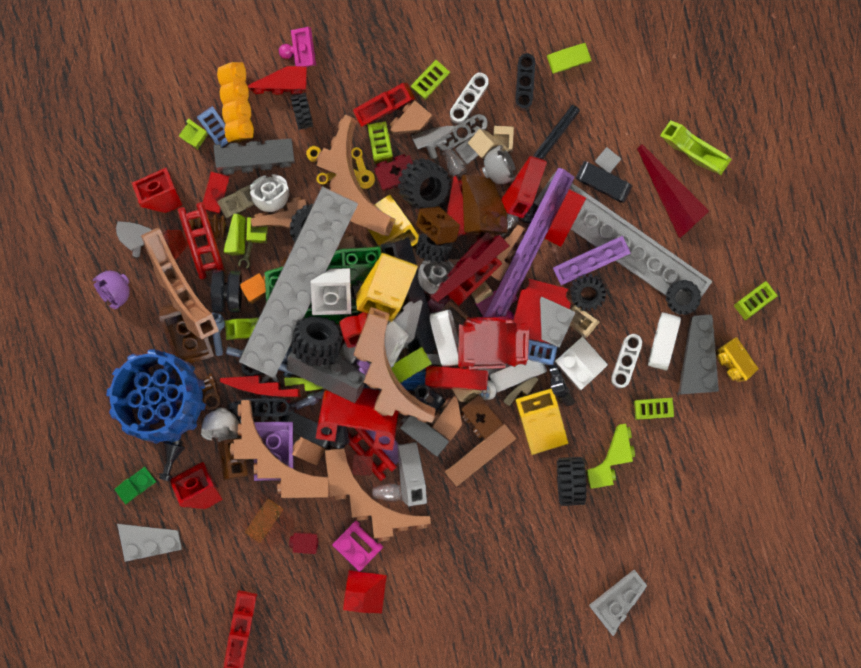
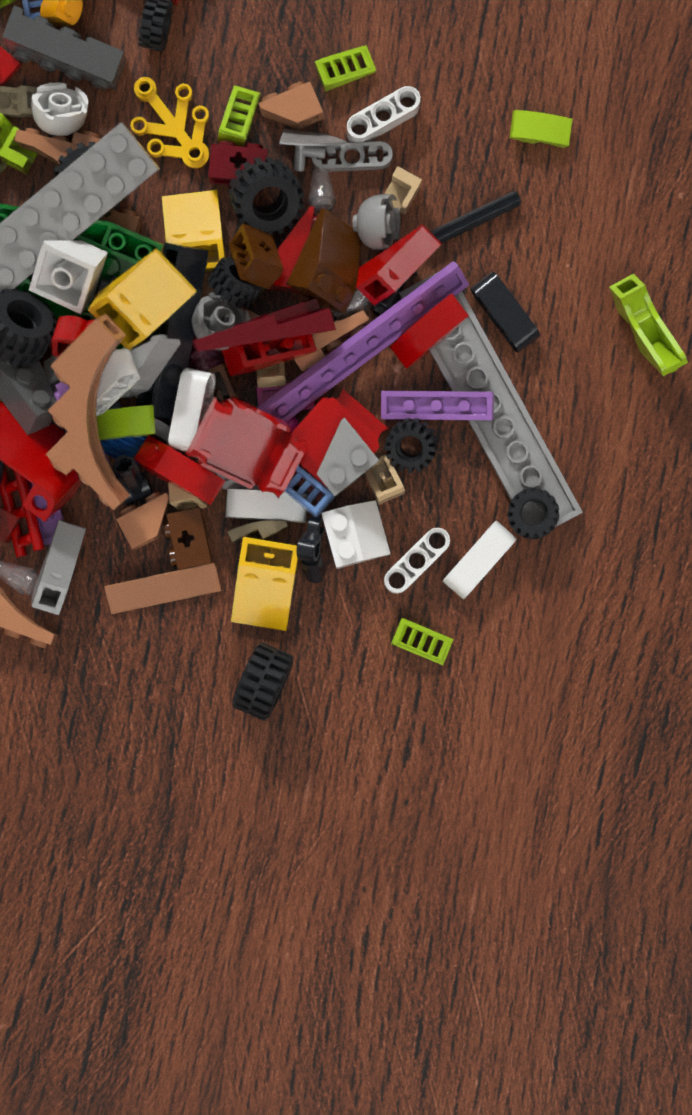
camera: 30 degrees right, 0 degrees up
(345, 183) = (171, 112): nougat arch -> none
(384, 104) = (269, 68): red slope -> none
(424, 434) = (100, 524): dark grey window -> none
(466, 152) = (348, 185): light grey tile -> none
(483, 142) = (372, 181): tan panel -> none
(490, 392) = (216, 510): white tile -> none
(529, 73) = (472, 118): black beam -> none
(607, 160) = (524, 286): light grey tile -> none
(618, 453) = (345, 677): lime arch -> none
(618, 600) = (243, 871): light grey wing -> none
(680, 204) = (591, 388): dark red wedge -> none
(699, 362) = (511, 611): dark grey wedge -> none
(737, 360) = (562, 632): yellow slope -> none
(745, 307) = (605, 573): lime slope -> none

